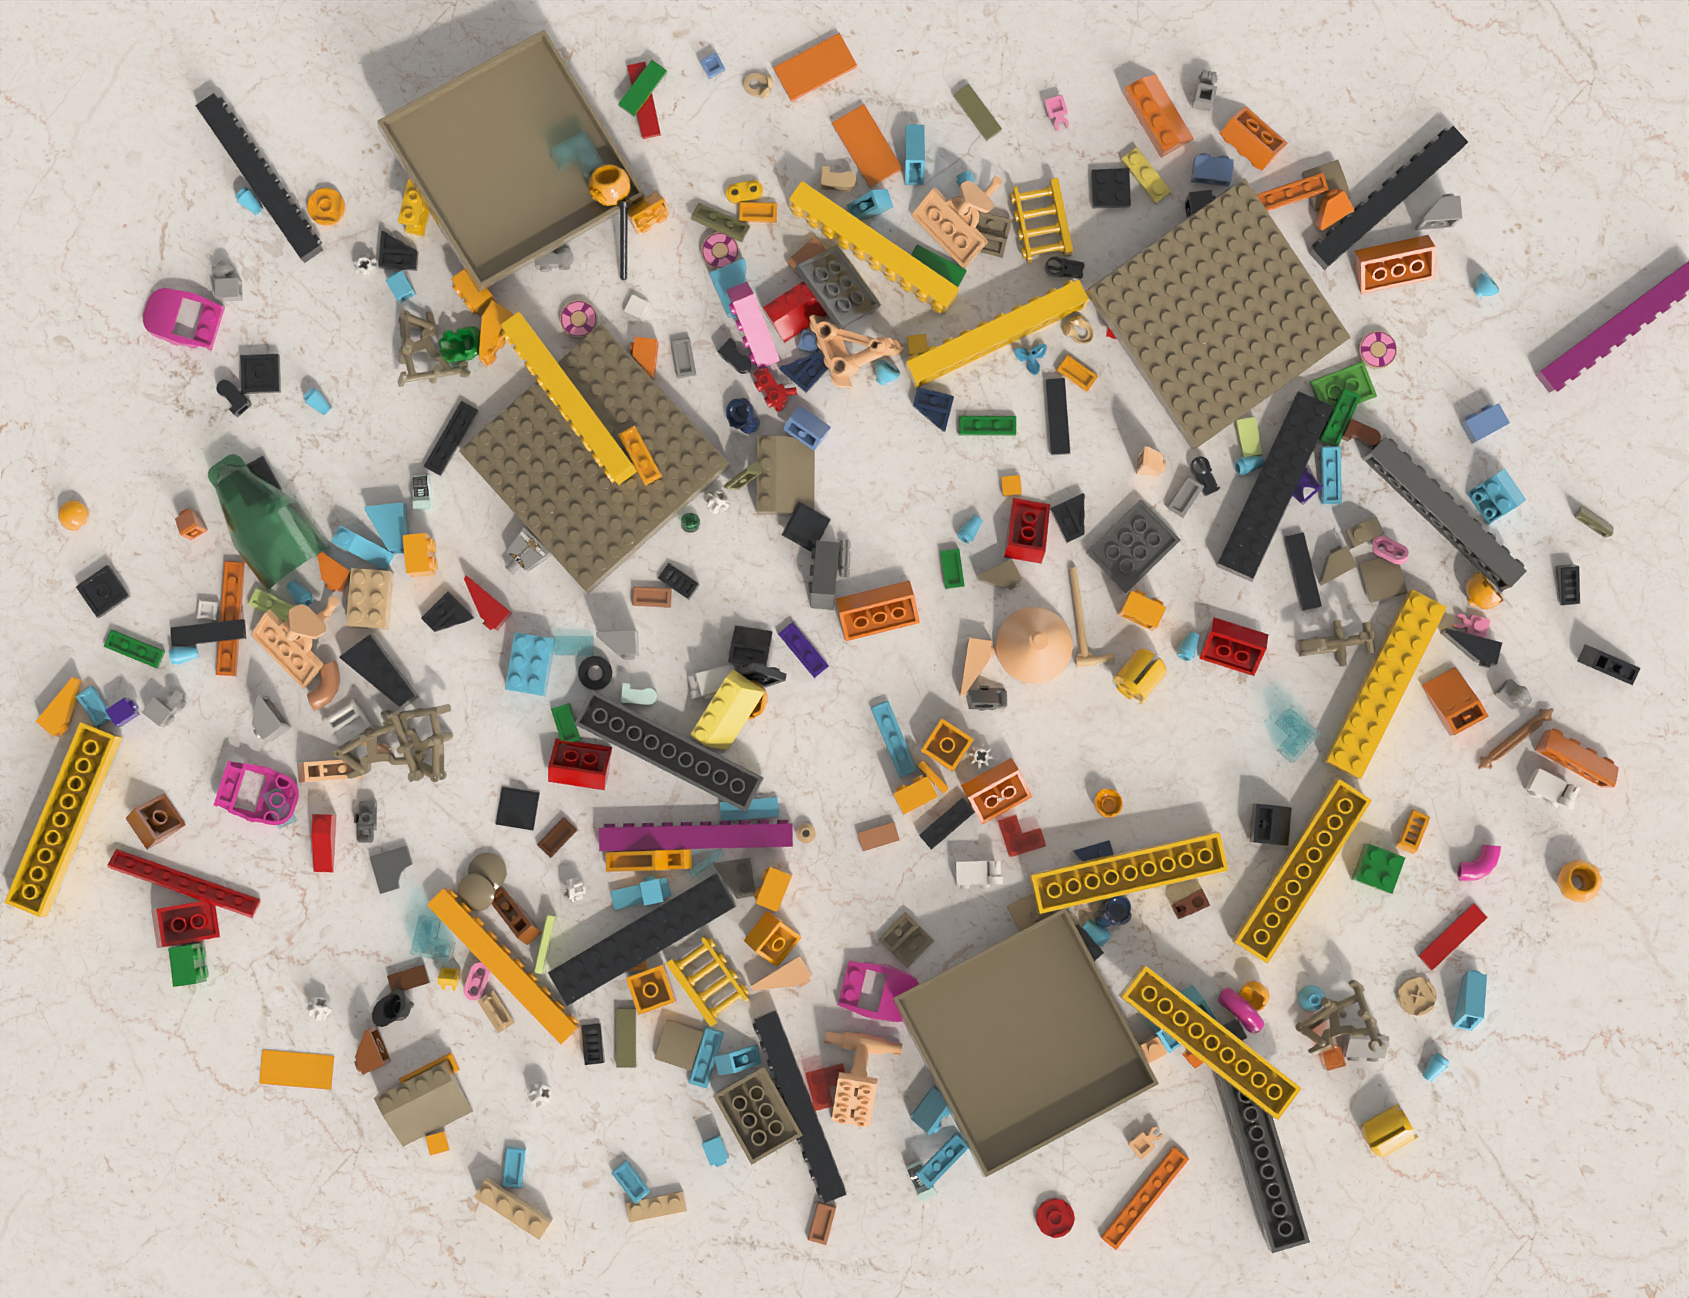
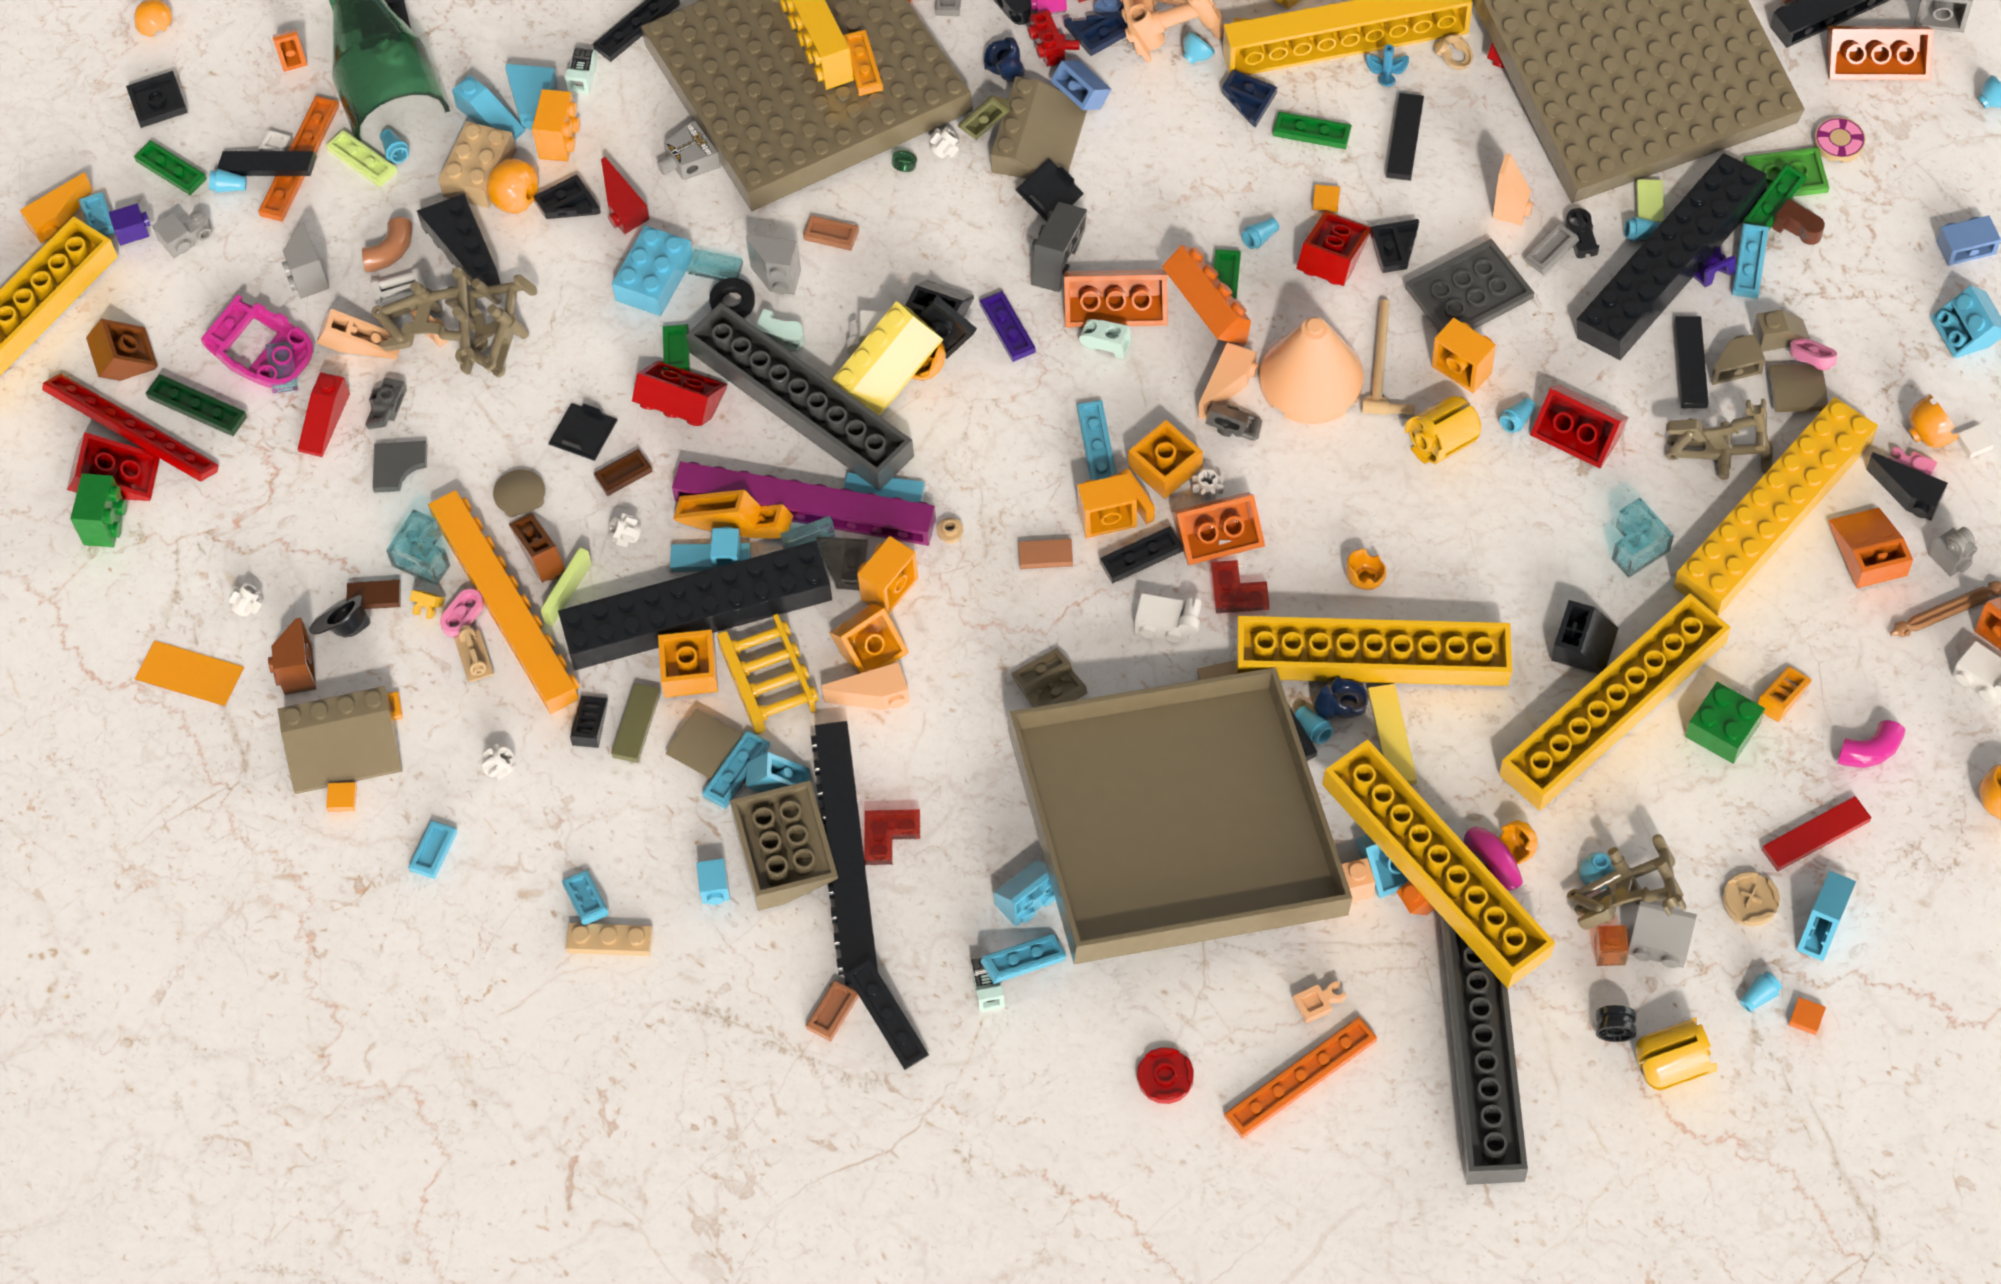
camera: 15 degrees right, 25 degrees down
(227, 853) = (196, 405): none -> dark green plate
(291, 640) = (360, 183): light nougat plate -> none
(333, 573) = (442, 129): orange slope -> none
(403, 614) = (512, 185): none -> light orange piece
(476, 892) = (497, 508): dark tan dish -> none
(513, 1208) = (415, 893): tan brick -> none
(692, 588) = (878, 235): black slope -> none
(845, 545) = (1090, 236): light grey axle -> none
(855, 1090) = (926, 828): light nougat plate -> none
(861, 1223) = (887, 1014): none -> black tile
(878, 647) = (1106, 336): none -> light aqua leg
(896, 983) = (959, 725): dark pink slope -> none
(946, 604) = (1208, 295): none -> orange slope
(1002, 576) = (1286, 289): dark tan slope -> none
(1077, 373) = (1441, 96): light orange tile -> none
(1152, 927) = (1391, 730): none -> light yellow tile
(1190, 904) = (1452, 714): copper leg -> none
(1345, 1116) = (1615, 1023): none -> black wheel
(1444, 514) = (1893, 322): dark grey brick -> none
(1468, 1075) = (1807, 1016): none -> orange tile

